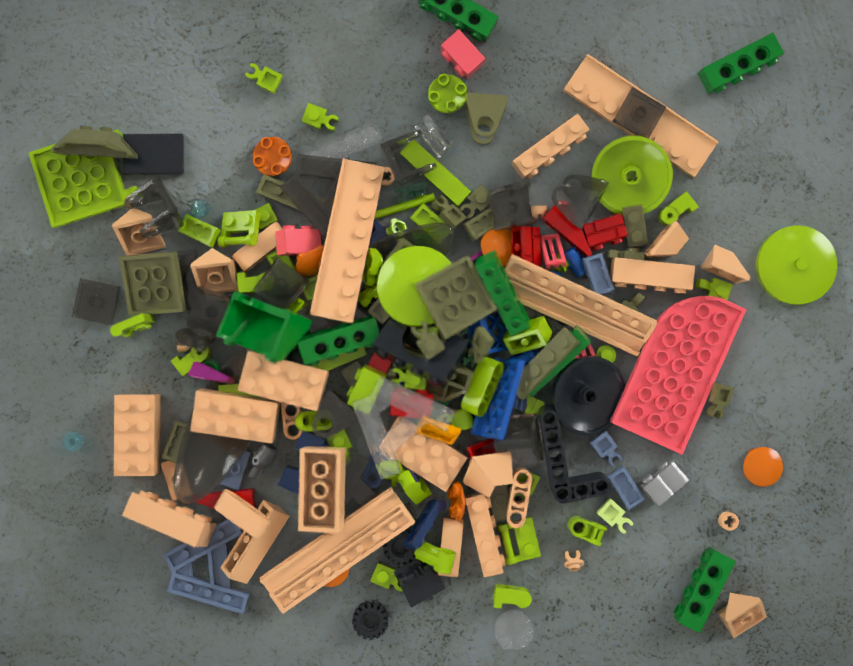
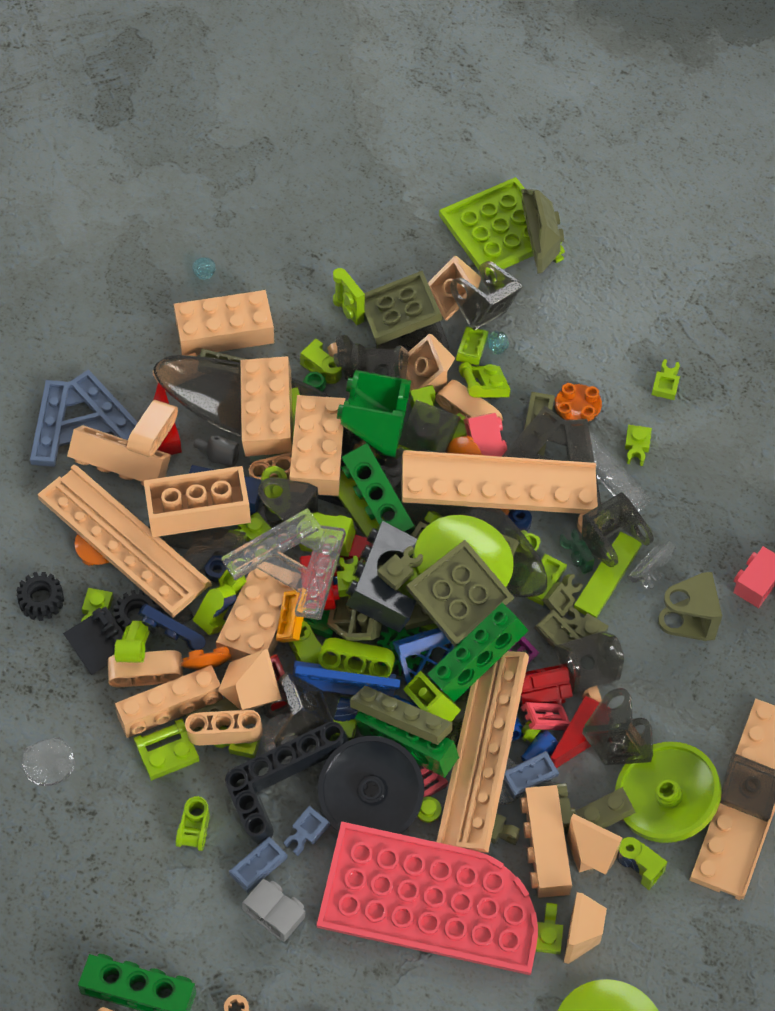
camera: 75 degrees right, 30 degrees down
(96, 301) = (367, 262): clear smoke plate -> none
(155, 154) = (548, 292): black tile -> none
(169, 518) = (133, 363): light nougat brick -> none
(204, 372) = (309, 371): magenta slope -> none
(236, 475) = (194, 427): sand blue plate -> none
(267, 216) = (507, 407): lime plate -> none
(373, 263) = (483, 514): lime plate -> none
(404, 206) = (555, 545): lime bar -> none
(447, 93) = (709, 561): lime dish -> none
(481, 344) = (412, 636): olive plate -> none
(498, 241) = (539, 649): orange dish -> none
(511, 595) = (94, 756): lime leg -> none
(550, 146) = (676, 692): light nougat brick -> none
(573, 564) = (146, 816): light nougat plate -> none
(604, 231) = (586, 775): red brick -> none
(613, 514) = (219, 854): yellowish green plate -> none
(720, 397) = (405, 961): olive plate -> none

